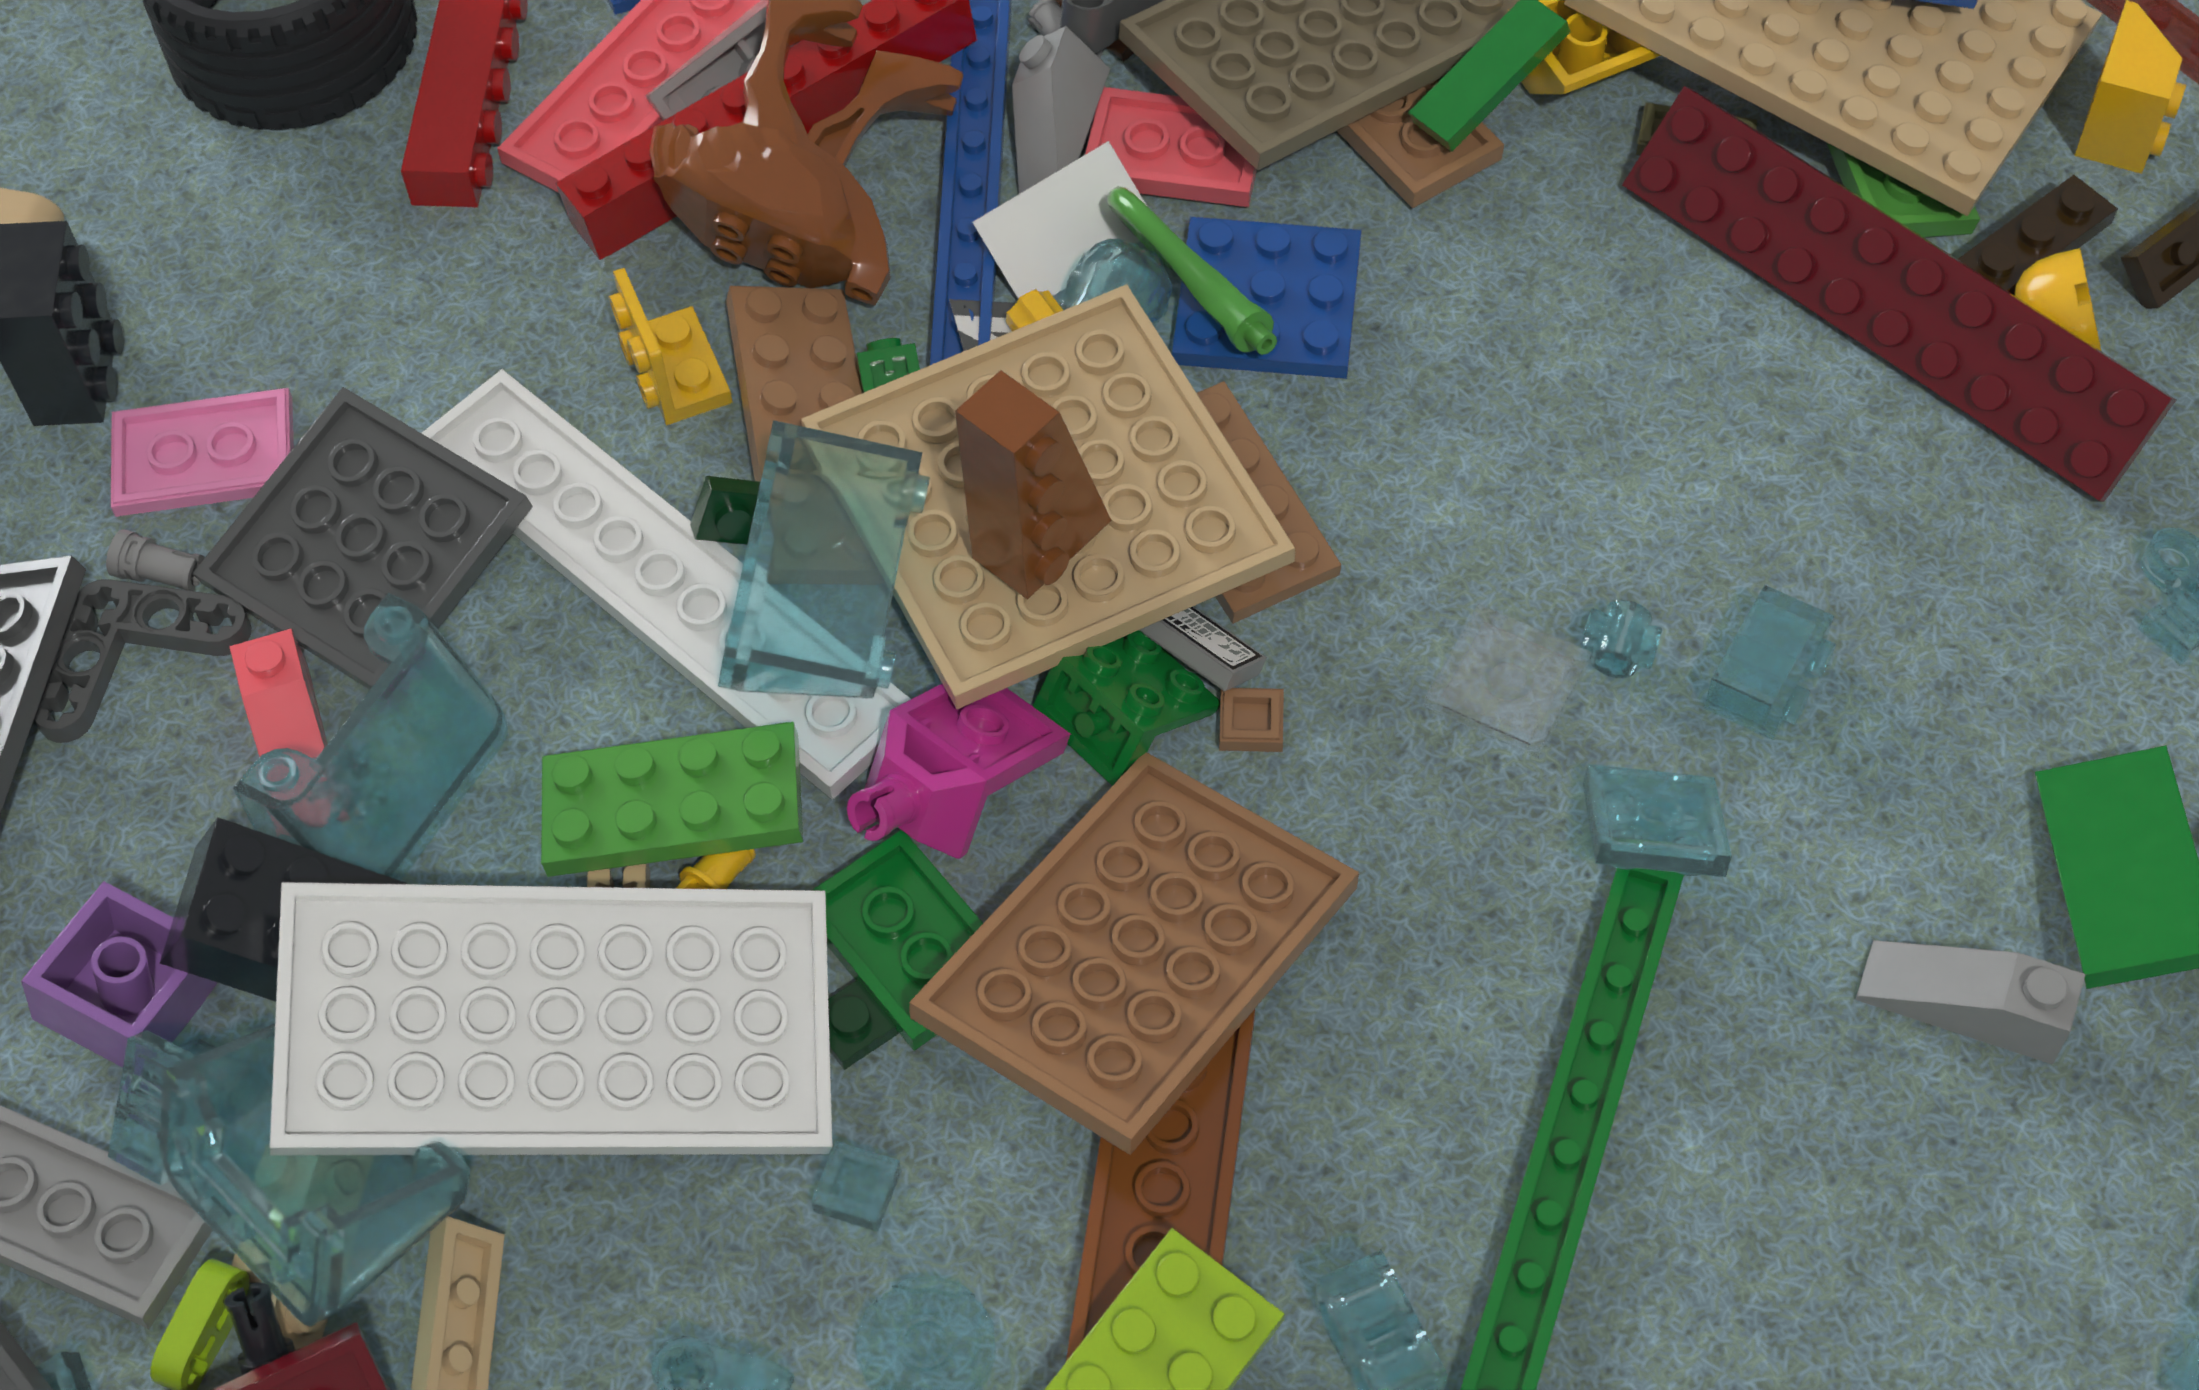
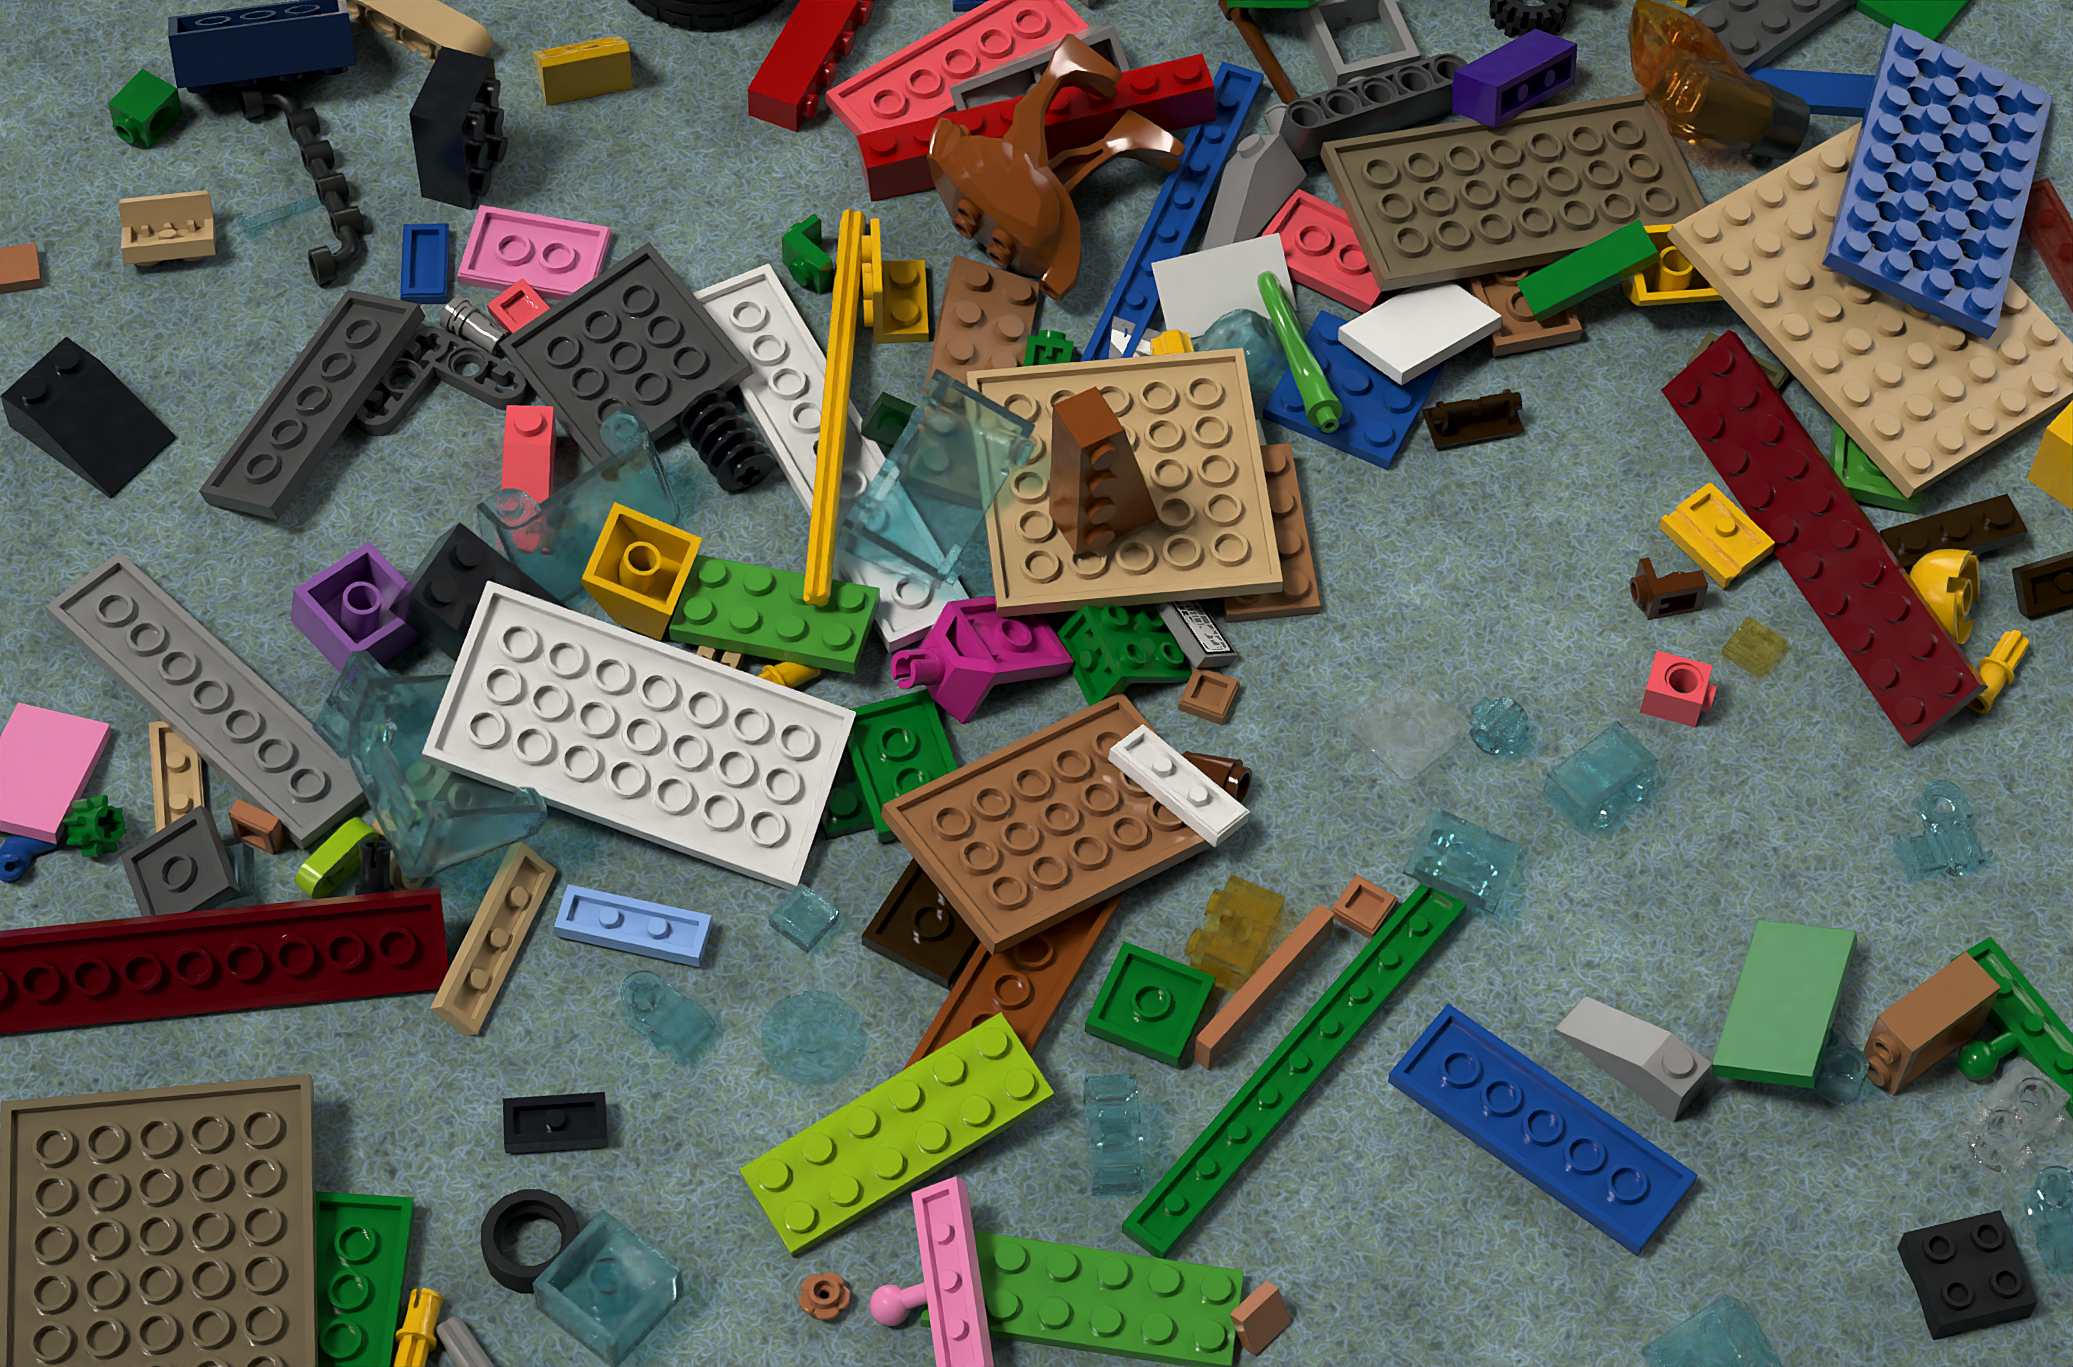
camera: 15 degrees right, 0 degrees up
(64, 505) = (425, 263): none -> blue tile
(74, 1320) = (256, 827): none -> nougat tile
(189, 212) = (584, 69): none -> yellow slope
(200, 520) = (517, 306): none -> coral plate
(477, 800) = (639, 569): none -> yellow slope
(526, 603) = (725, 442): none -> black piece
(543, 348) = (804, 257): none -> green bracket
(634, 1276) = (633, 925): none -> light blue plate
(654, 527) = (834, 410): none -> yellow axle
(1015, 1147) = (921, 929): none -> dark brown plate
(1270, 846) = (1178, 785): none -> white tile
(1310, 815) = (1224, 771): none -> reddish brown cone
(1320, 201) = (1419, 329): none -> white tile
(1348, 1144) = (1150, 1004): none -> green plate
(1421, 1050) = (1254, 918): none -> clear yellow brick
(1424, 285) = (1474, 419): none -> dark brown hinge
(1480, 1071) = (1263, 986): none -> nougat tile
(1555, 921) = (1364, 907): none -> nougat tile
(1745, 416) = (1667, 595): none -> reddish brown bracket
(1765, 329) = (1717, 535): none -> yellow plate
(1788, 518) = (1673, 673): none -> coral brick
(1868, 446) = (1754, 647): none -> clear yellow tile
(1908, 1133) = (1542, 1129): none -> blue plate
(2159, 367) = (1999, 668): none -> yellow axle

